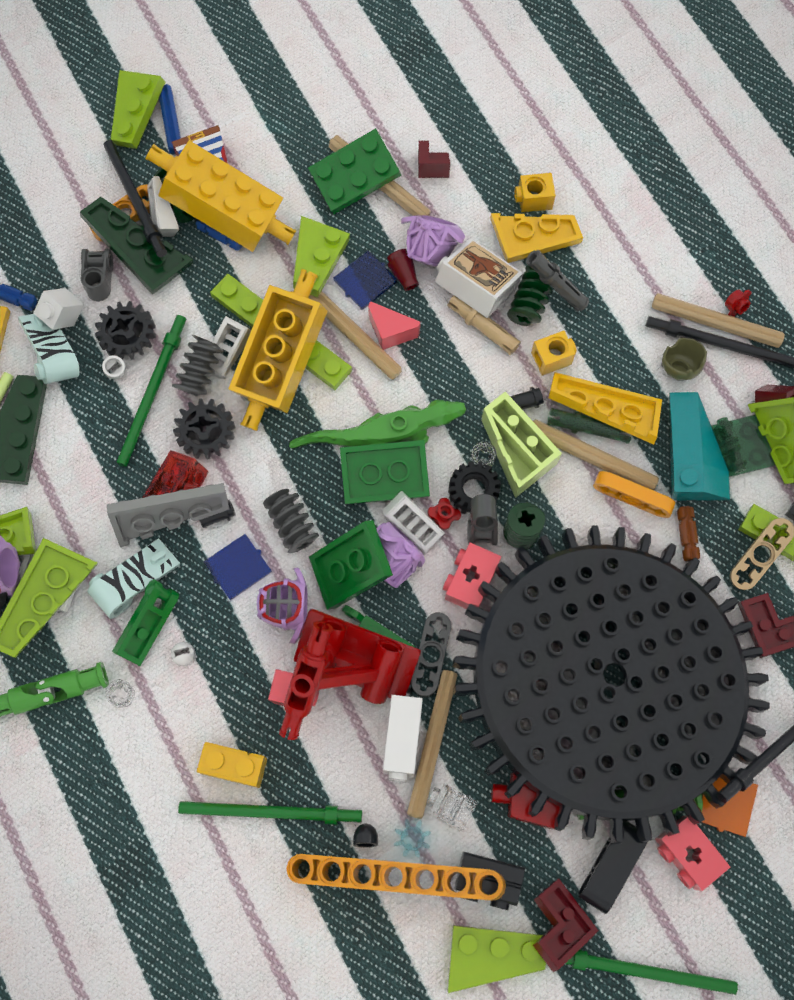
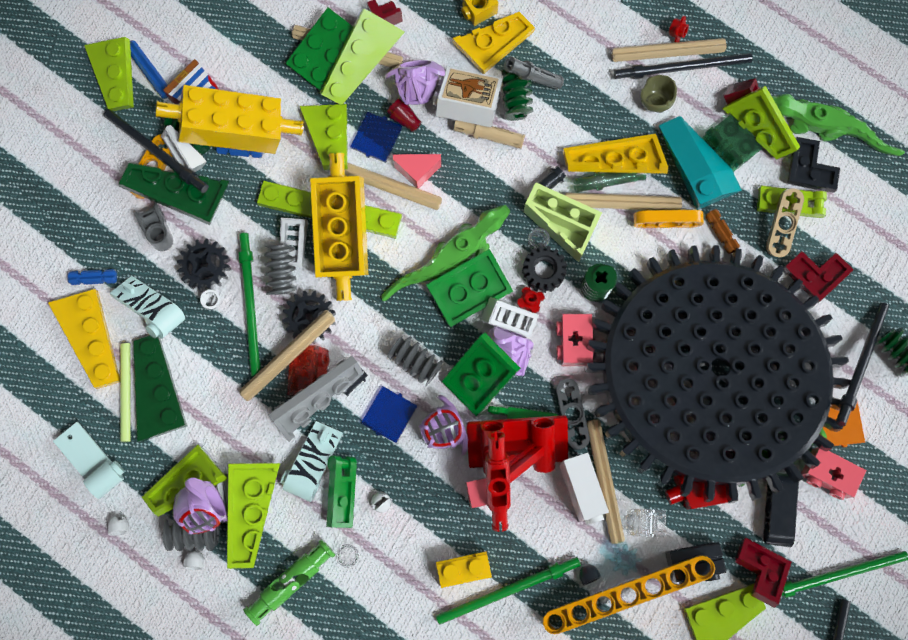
camera: 25 degrees left, 5 degrees up
(58, 308) = (140, 271): white brick -> none
(161, 456) = (287, 355): none -> tan axle
(388, 187) = (362, 51): none -> lime wing
(483, 520) = (564, 292): dark grey piece -> none
(546, 360) = (551, 141): yellow brick -> none

